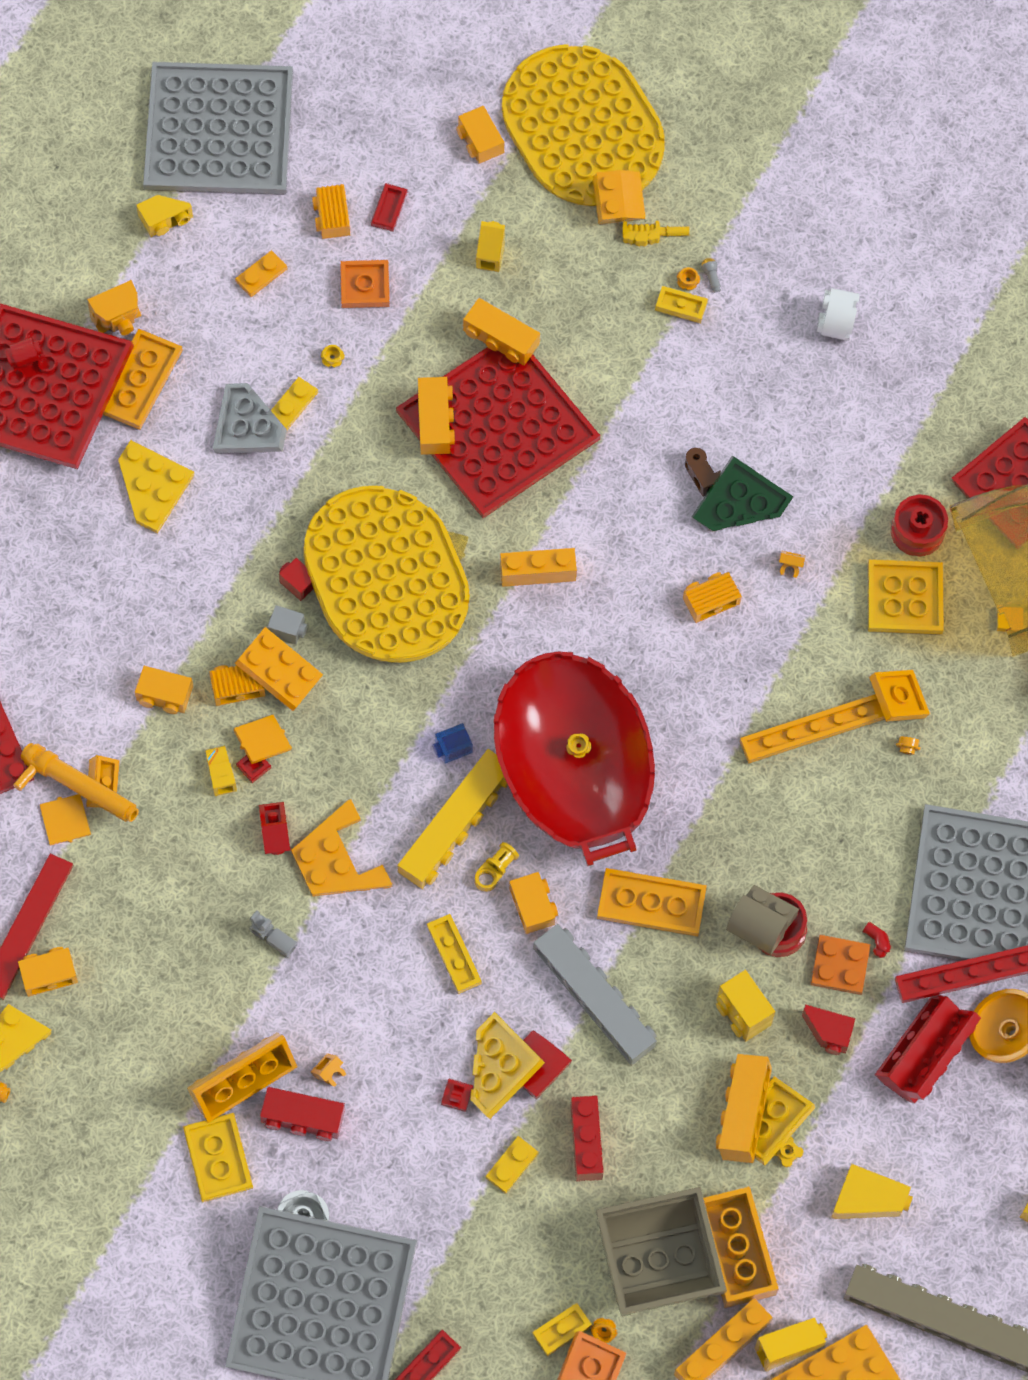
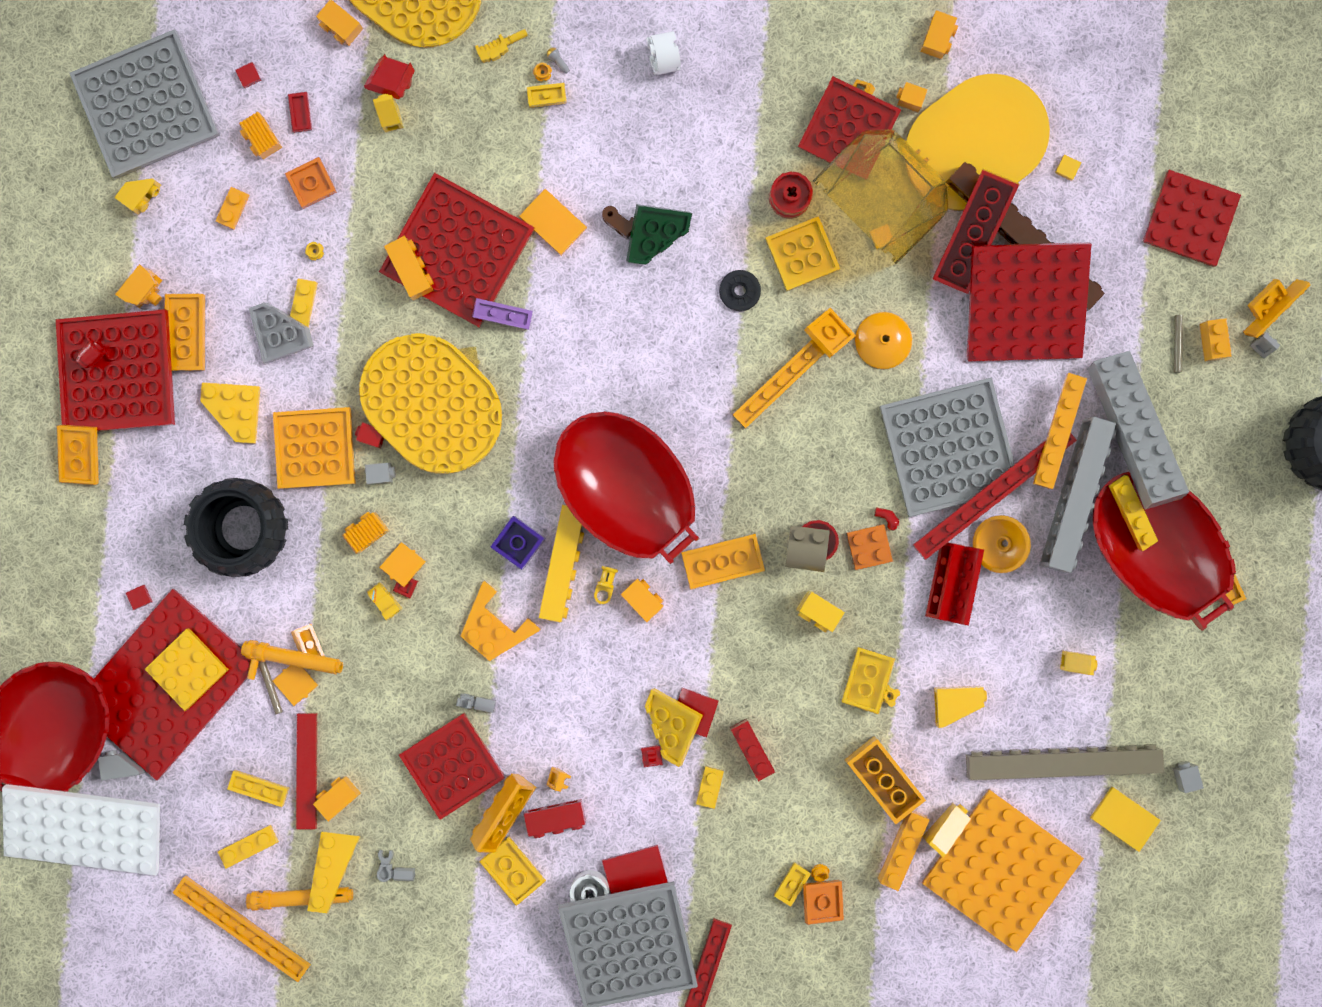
camera: 15 degrees left, 20 degrees up
(33, 810) = (270, 687): none -> dark tan bar
(62, 1089) = (398, 874): none -> light grey bar
(85, 570) = (206, 520): none -> black tyre
(163, 690) = (317, 560): light orange brick -> none
(206, 997) = (452, 766): none -> red plate
(224, 565) = (314, 448): none -> light orange plate
(274, 828) = (441, 626): red slope -> none
(279, 669) = (389, 510): light orange plate -> none
(350, 146) = (248, 75): none -> red tile
(373, 1214) = (635, 870): none -> red tile
(414, 770) = (518, 542): none -> dark purple brick
(452, 743) = (535, 509): clear blue brick -> none
(454, 953) = (605, 659): yellow plate -> none
(501, 332) = (427, 180): light orange brick -> none
(512, 210) = (390, 77): none -> red slope
(518, 511) = (502, 313): none -> medium lavender plate
(538, 567) = (535, 350): light orange brick -> none
(576, 739) = (623, 467): yellow plate -> none
(594, 994) = (713, 646): light grey brick -> none
(618, 196) = (463, 28): light orange slope -> none
(625, 441) = (553, 222): none -> light orange tile
(660, 1251) = (839, 815): dark tan container -> none
(711, 596) = (667, 315): light orange brick -> none
(744, 1108) = (849, 682): light orange brick -> none
(793, 560) = (711, 261): light orange tile -> none
(812, 592) = (744, 279): none -> black wheel
(829, 1028) = (883, 598): red slope -> none
(908, 745) = (850, 365): light orange plate -> none
(958, 749) = (876, 351): none -> light orange dish

